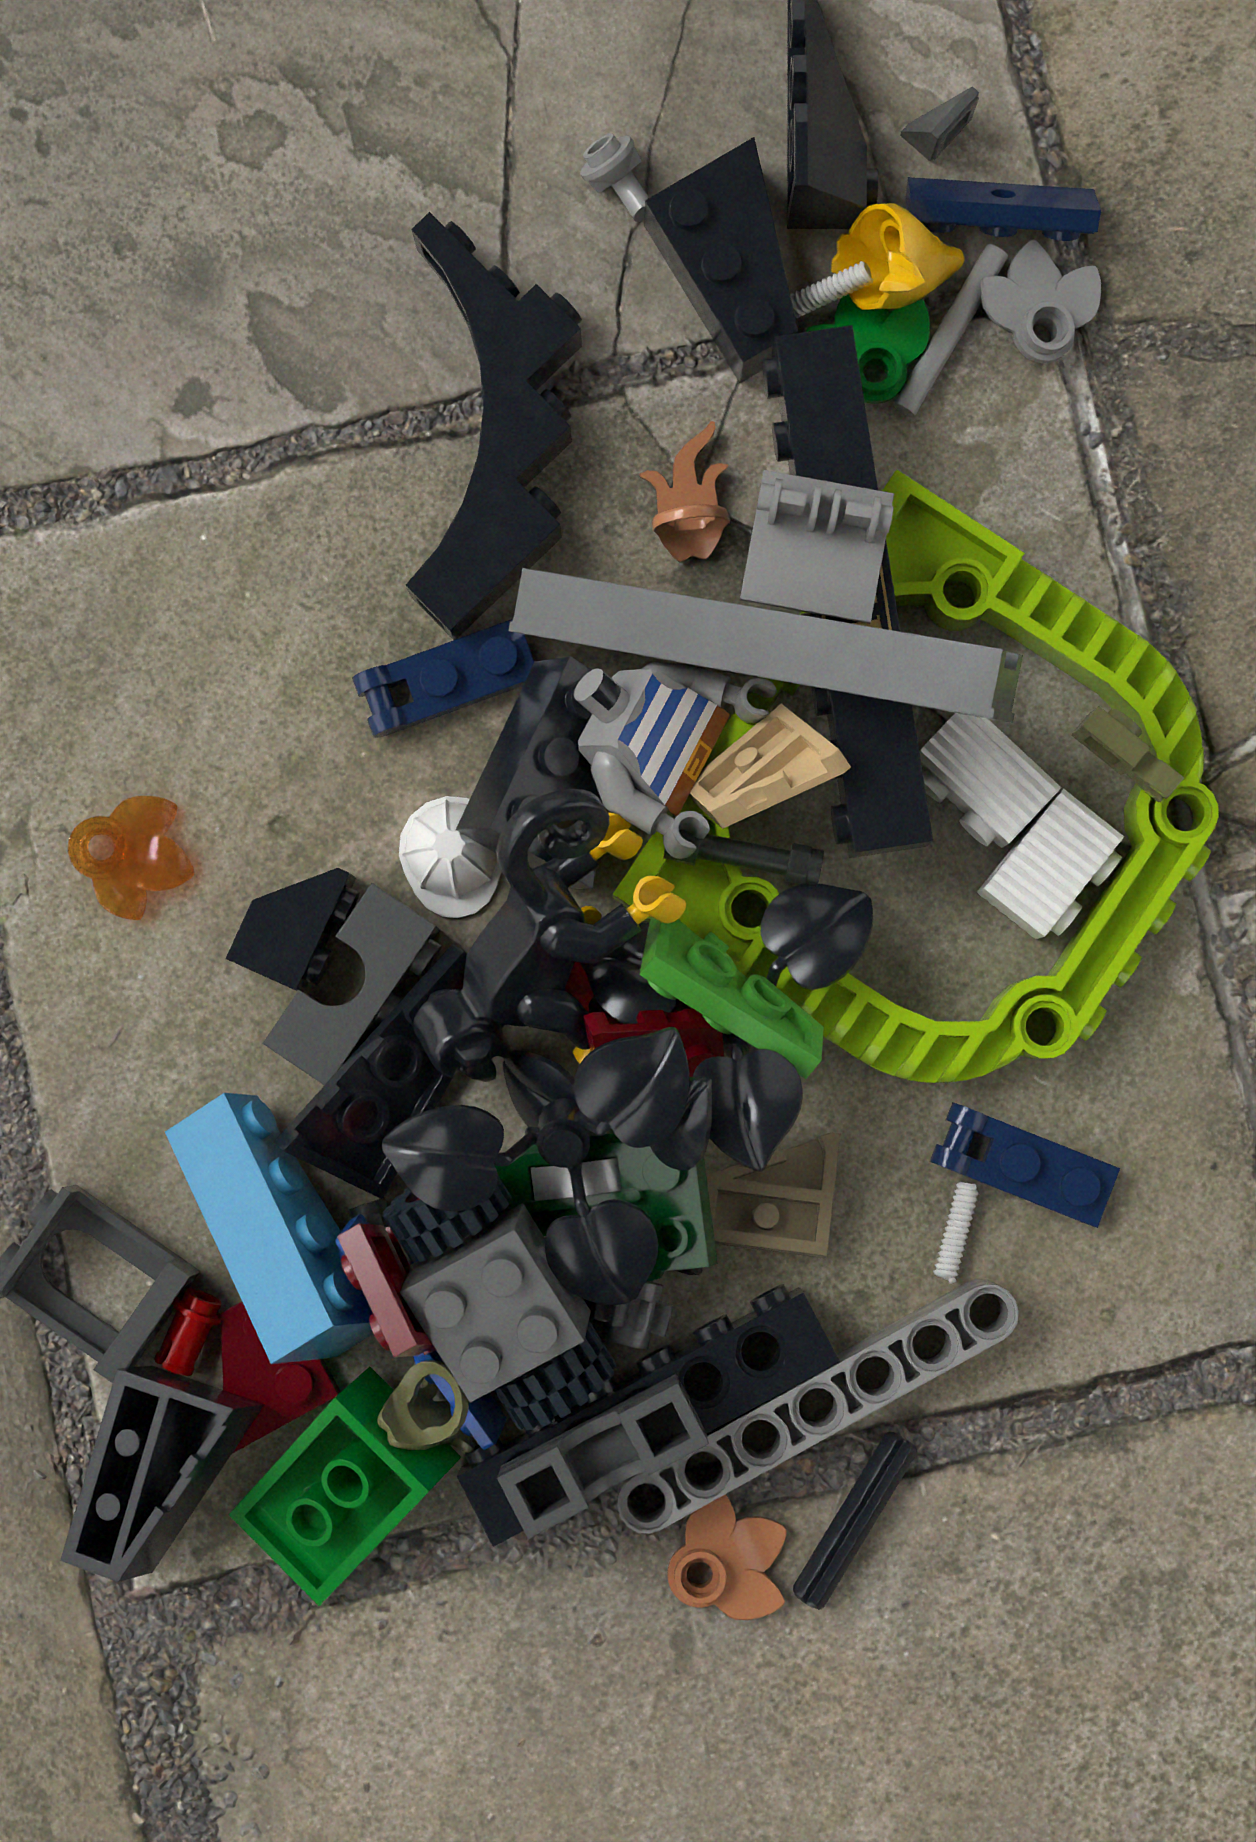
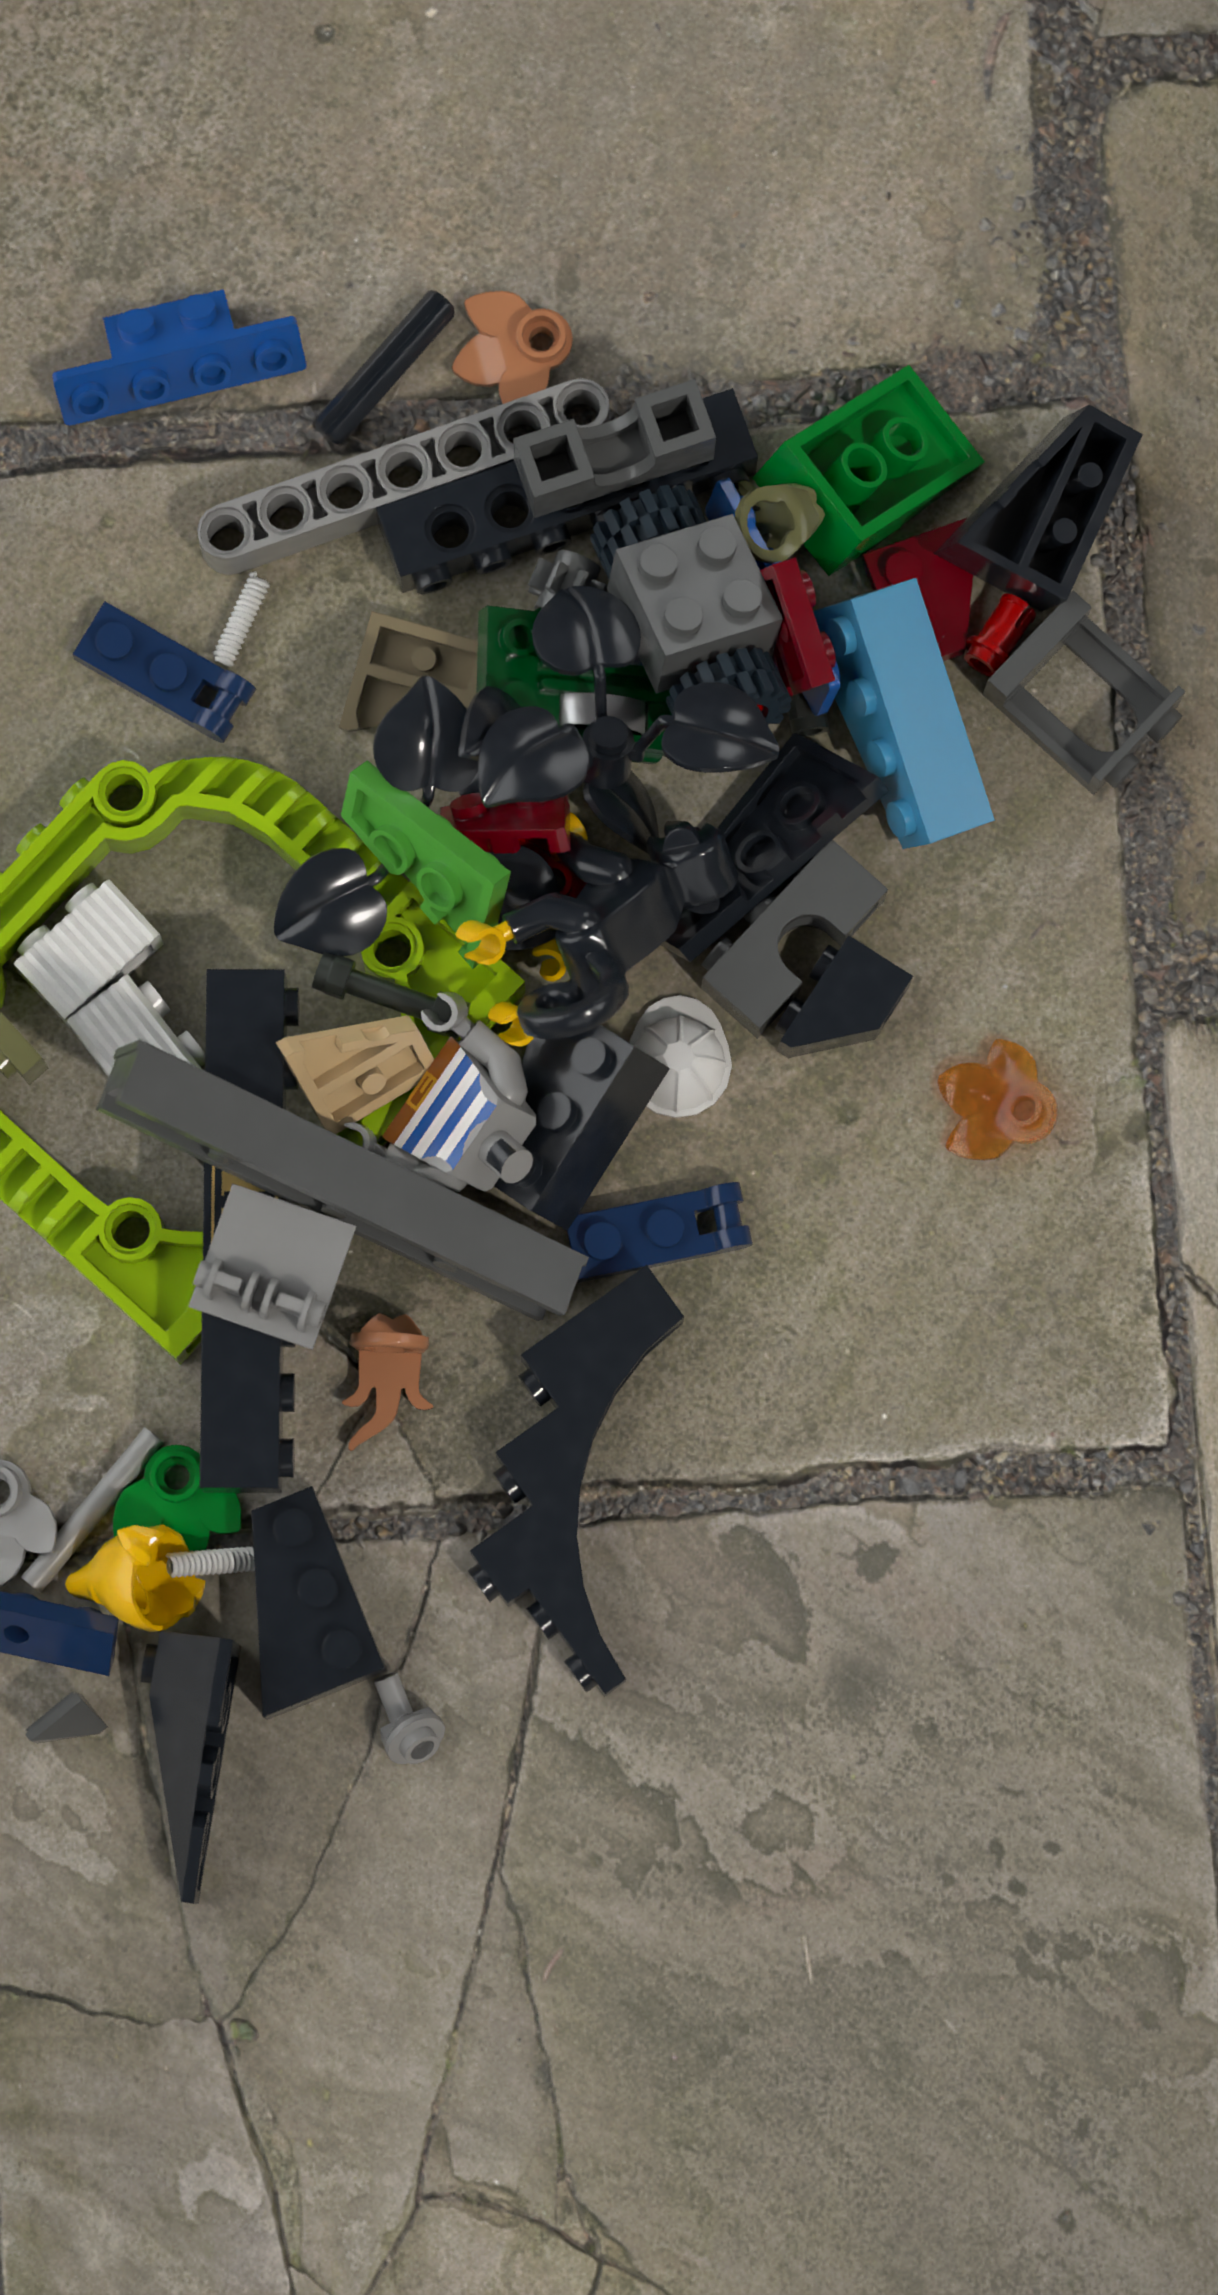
camera: 175 degrees left, 5 degrees down
(1072, 1499) = (175, 355): none -> blue bracket

